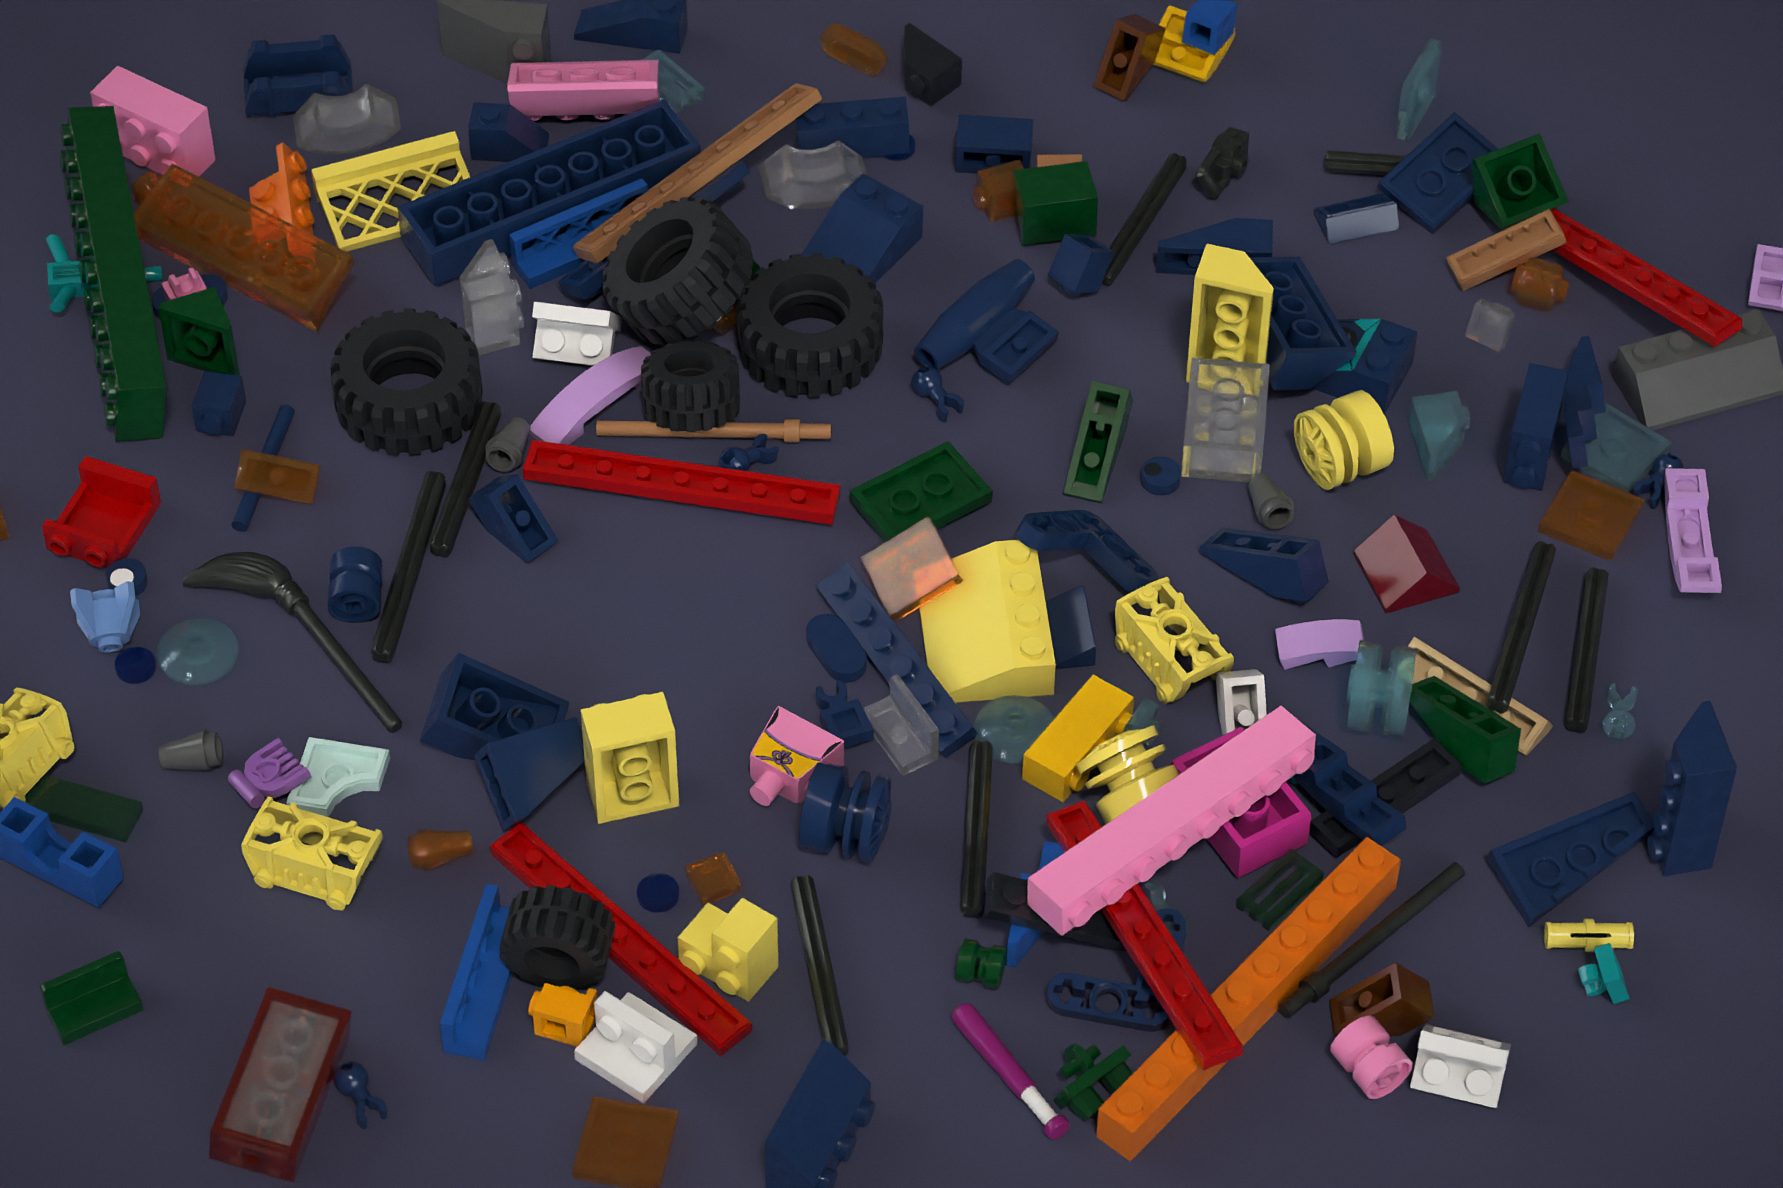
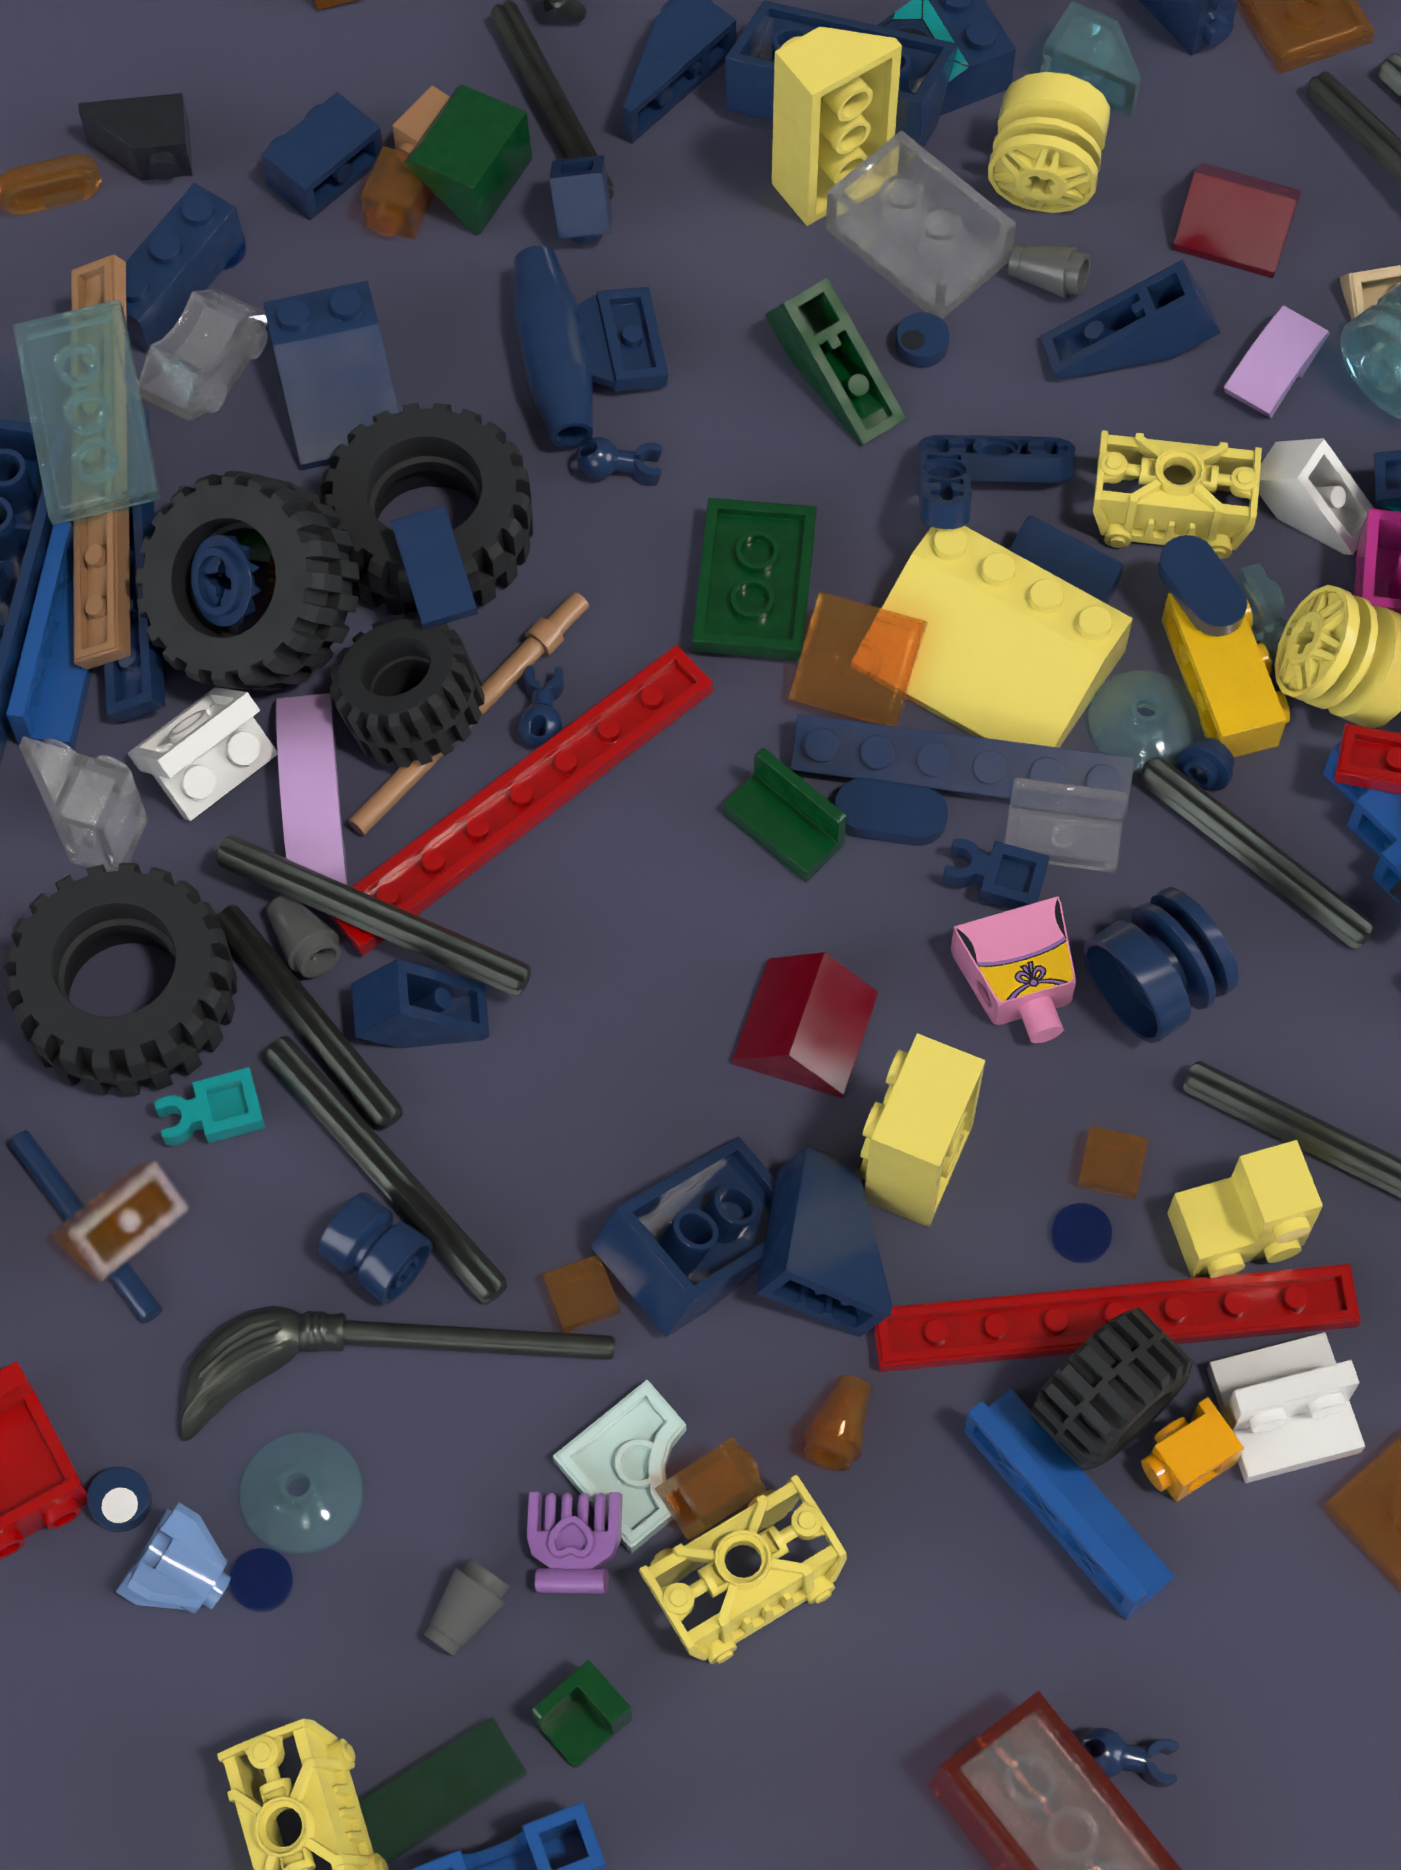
camera: 50 degrees left, 15 degrees up
(176, 836) = (581, 1714): none -> dark green panel
(349, 801) = (711, 1488): none -> clear orange brick
(376, 476) = (222, 1107): none -> teal plate
(412, 693) = (581, 1293): none -> clear orange tile
(543, 459) = (373, 915): none -> pearl dark grey axle
(661, 254) = (214, 596): none -> dark blue gear
(681, 679) = (806, 1022): none -> dark red slope
(710, 140) = (86, 412): none -> clear light blue tile
(760, 335) = (434, 567): none -> dark blue tile
(782, 604) = (787, 816): none -> dark green panel
(1008, 768) = (1207, 764): none -> dark blue plate
(1110, 682) = (1202, 585): none -> dark blue tile

